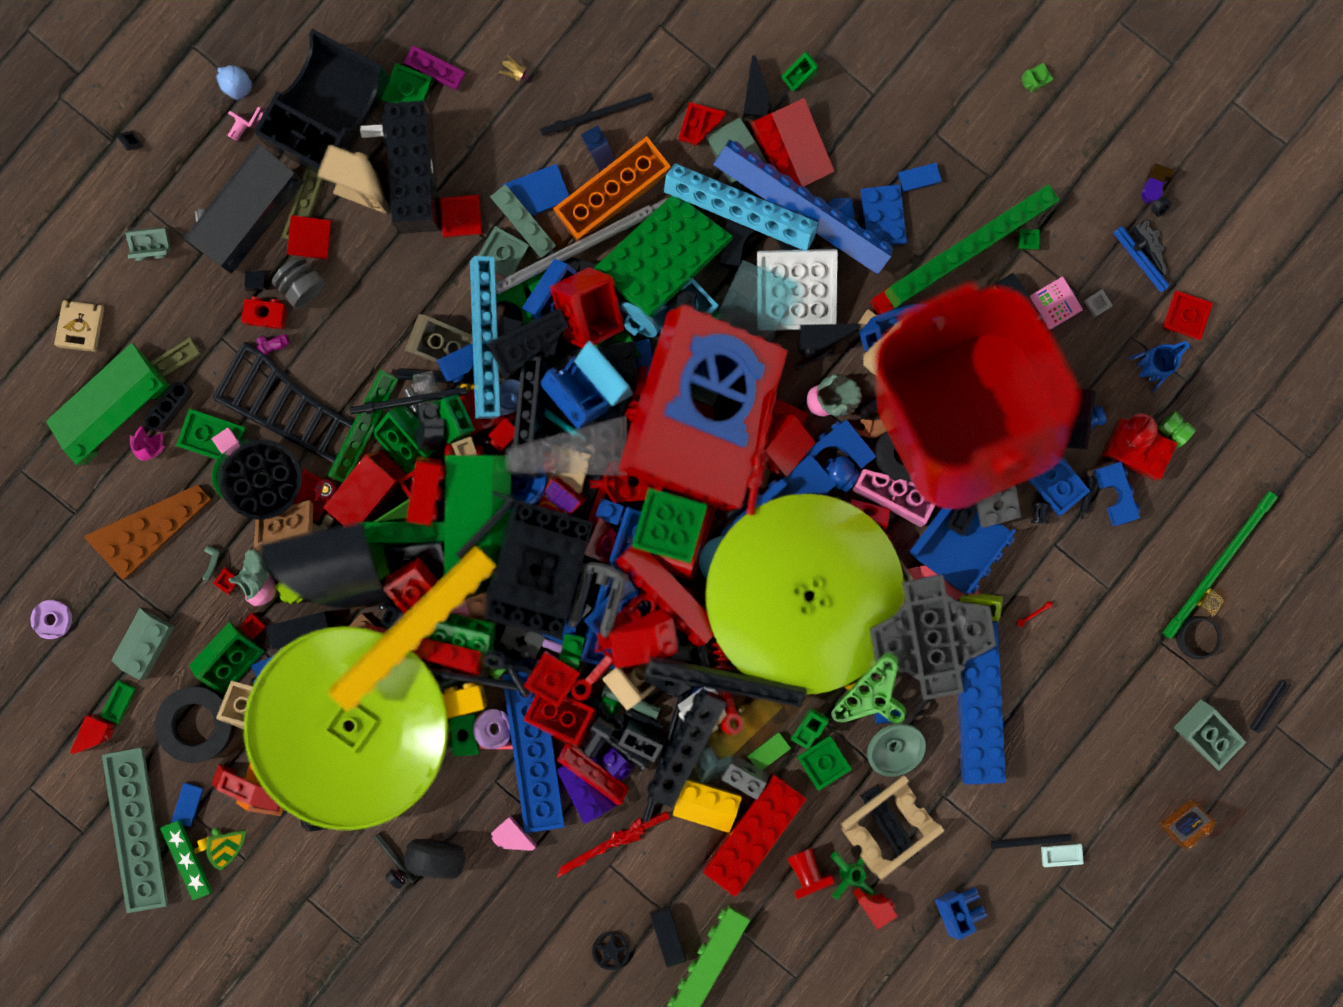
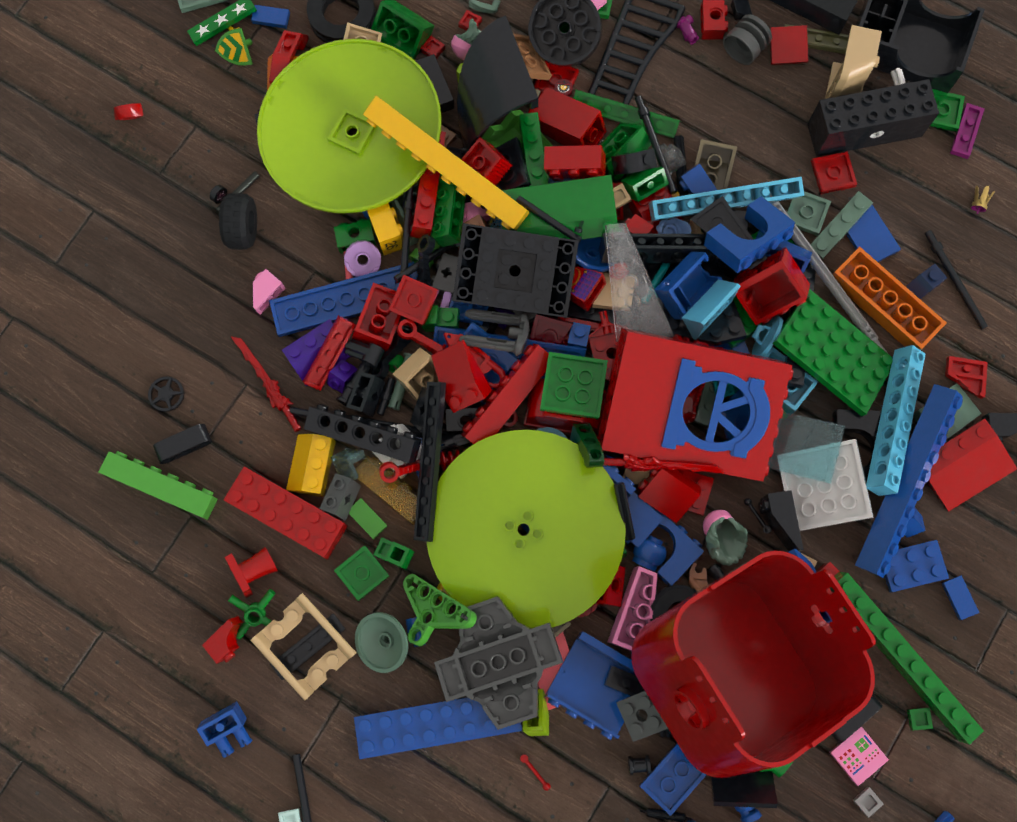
camera: 85 degrees right, 10 degrees down
(284, 972) = (128, 111): none -> red hat
(555, 336) = (740, 252): none -> blue arch
(732, 520) = (588, 445): none -> dark green leg
(800, 493) = (623, 505): none -> black axle

